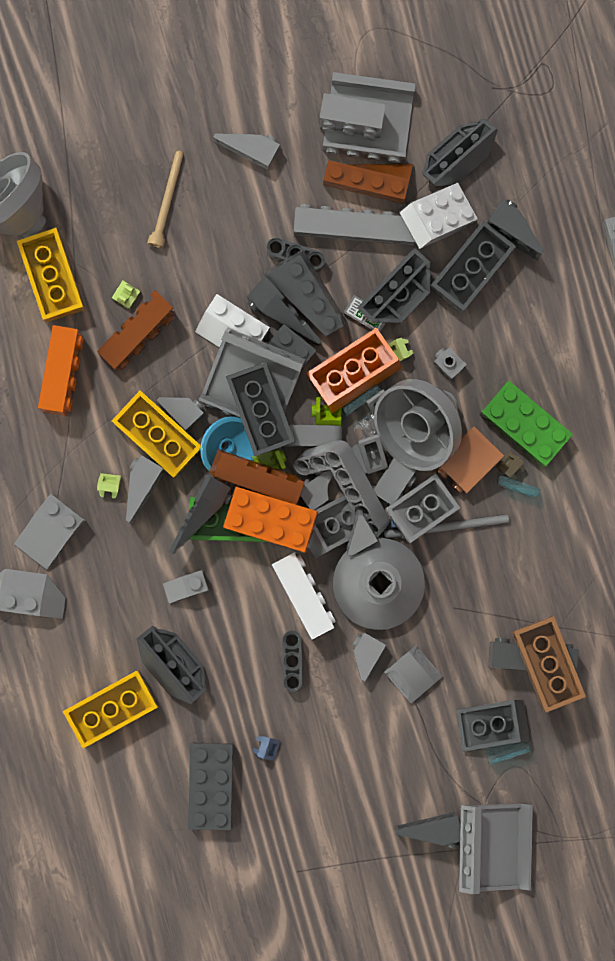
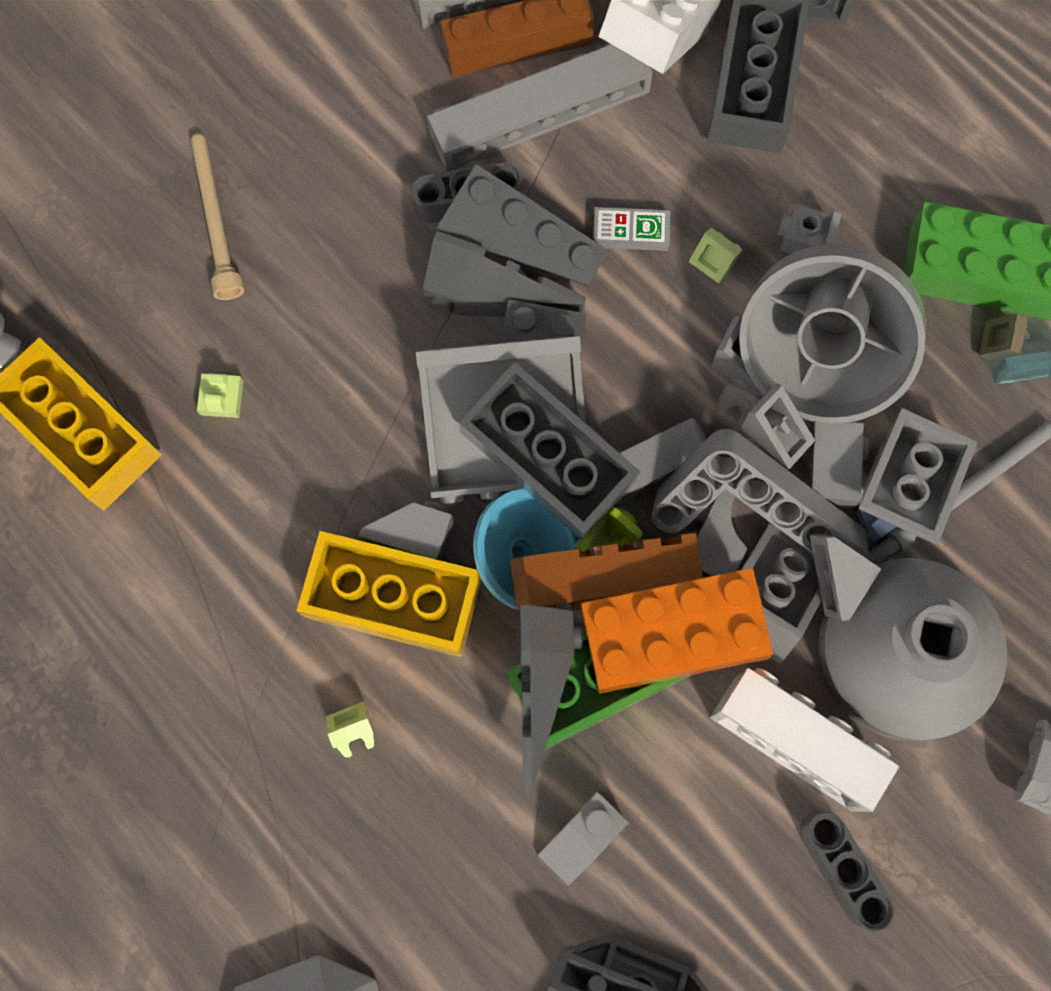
camera: 20 degrees left, 10 degrees down
(49, 531) = (284, 871): light grey slope -> none
(60, 370) = (163, 572): orange brick -> none
(137, 331) = (267, 438): dark orange wedge -> none
(142, 482) = (407, 685): light grey slope -> none
(224, 315) = (396, 337): white slope -> none
(255, 148) = (305, 71): light grey slope -> none
(324, 416) = (659, 412): lime bracket -> none
(354, 370) = (665, 316): orange brick -> none
(360, 401) = (703, 362): clear light blue tile -> none
(366, 653) = (968, 785): light grey slope -> none
(399, 291) = (667, 156): dark grey wedge -> none
(470, 462) = (953, 360): nougat slope -> none

